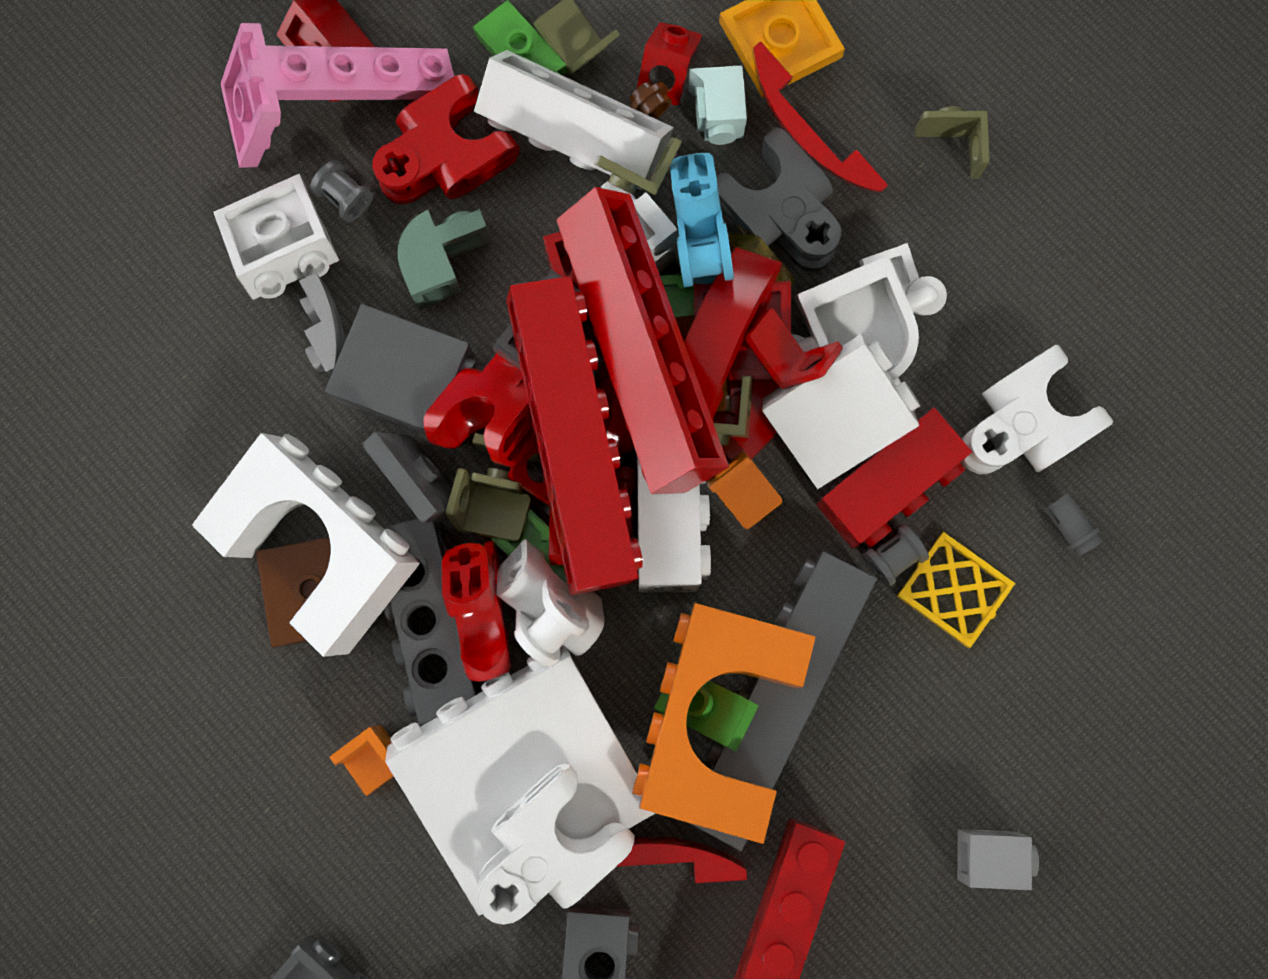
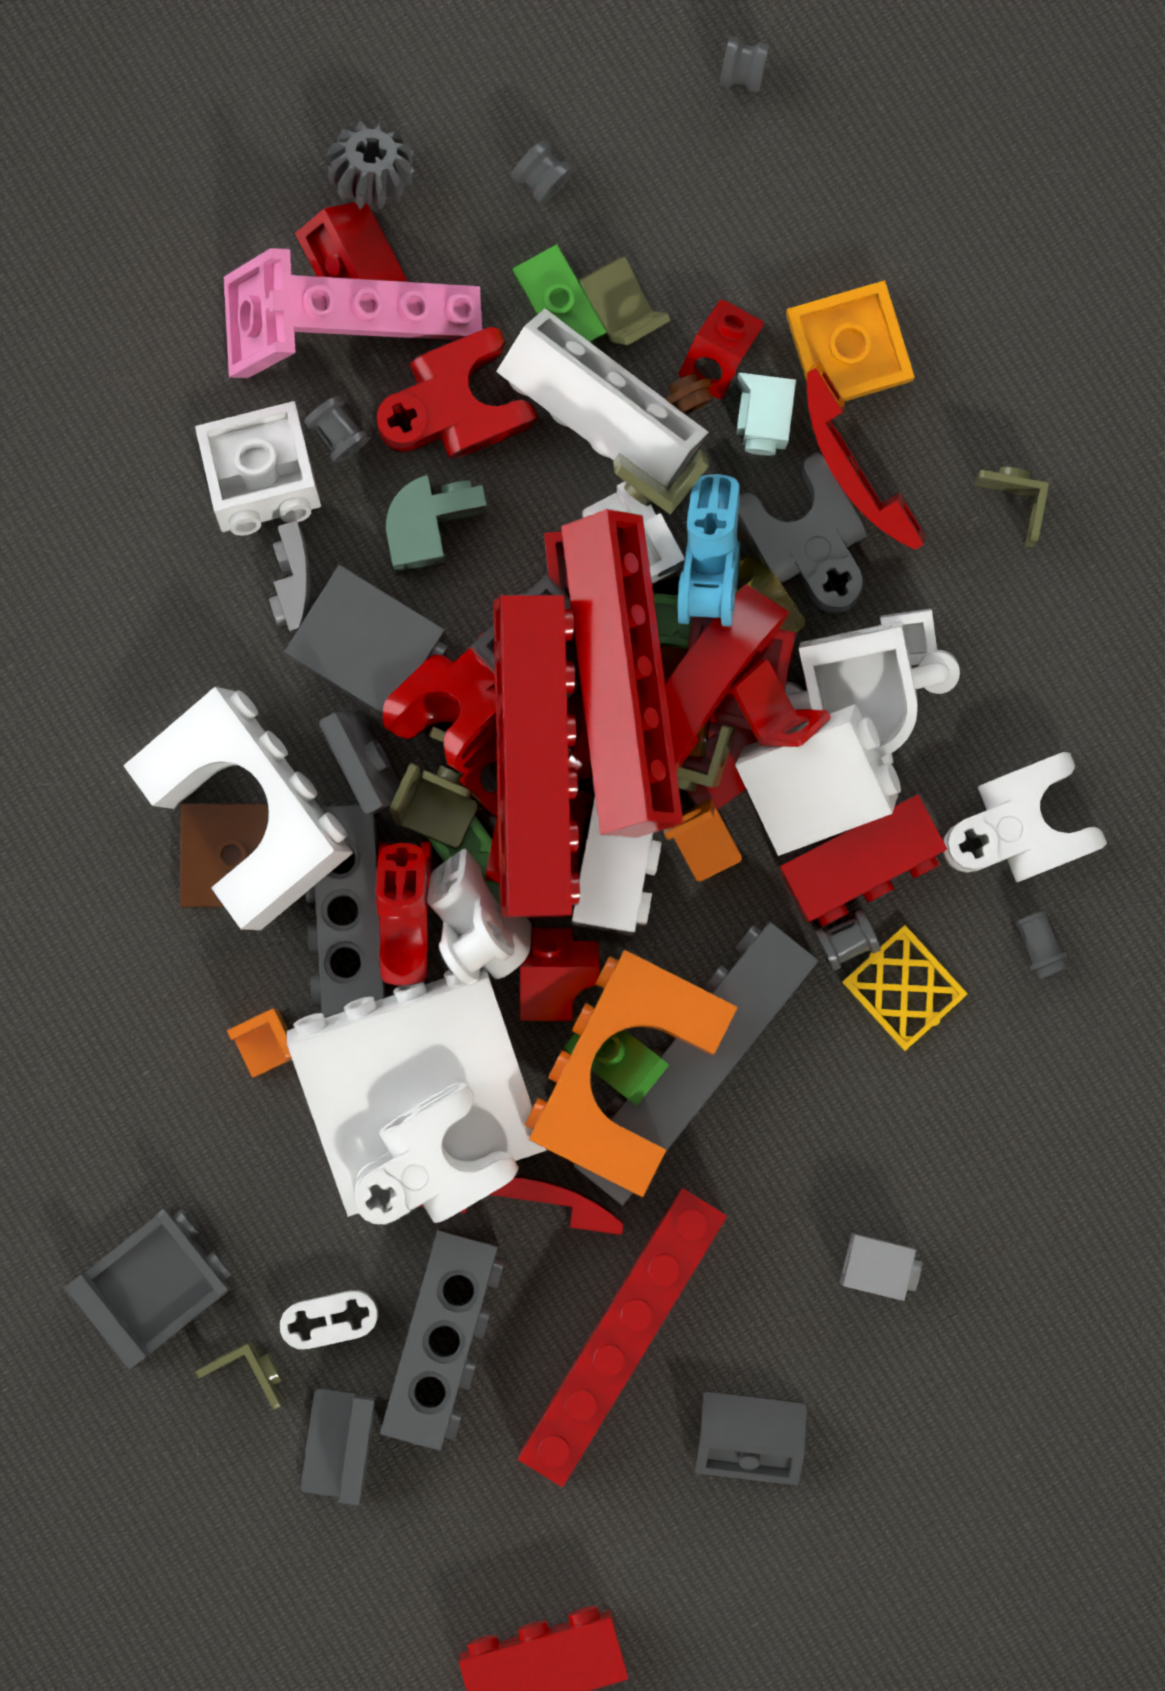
camera: 10 degrees right, 5 degrees up
(633, 640) = (555, 974): none -> red brick

